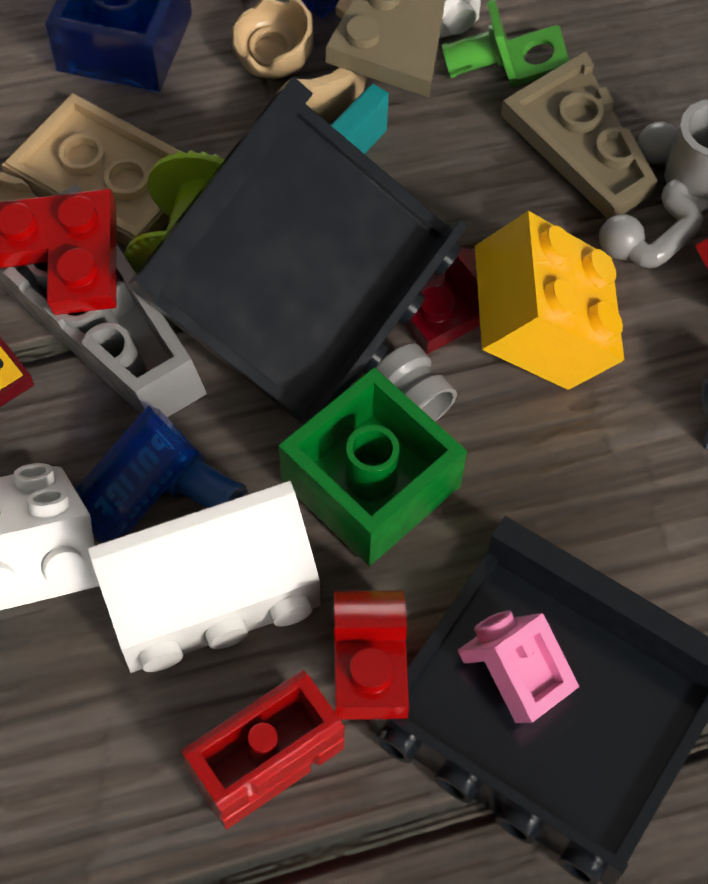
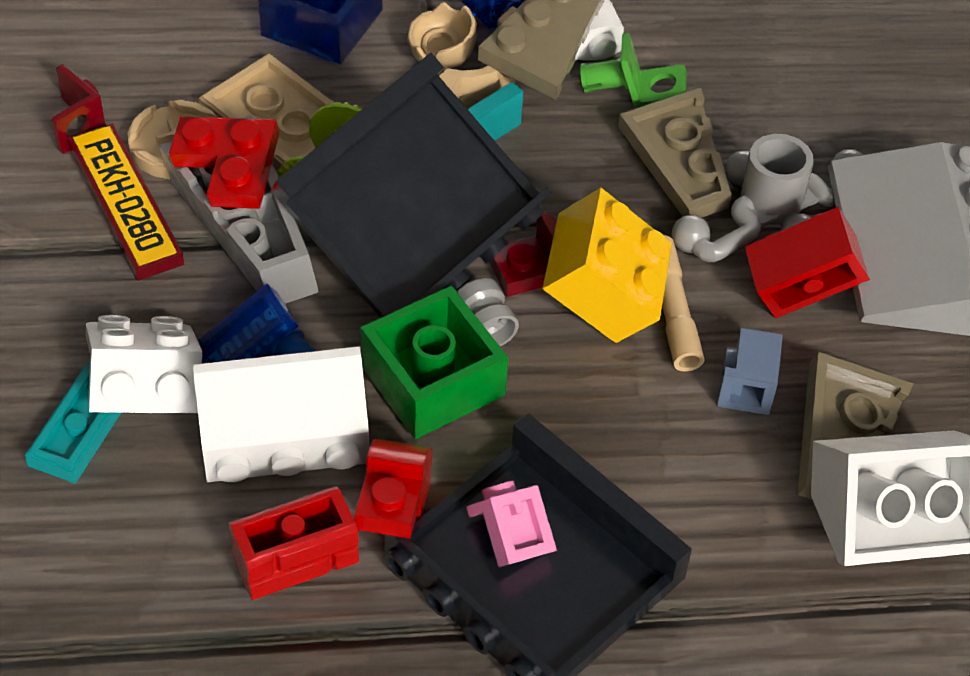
camera: 10 degrees right, 10 degrees down
(642, 359) = (680, 327): none -> tan piece

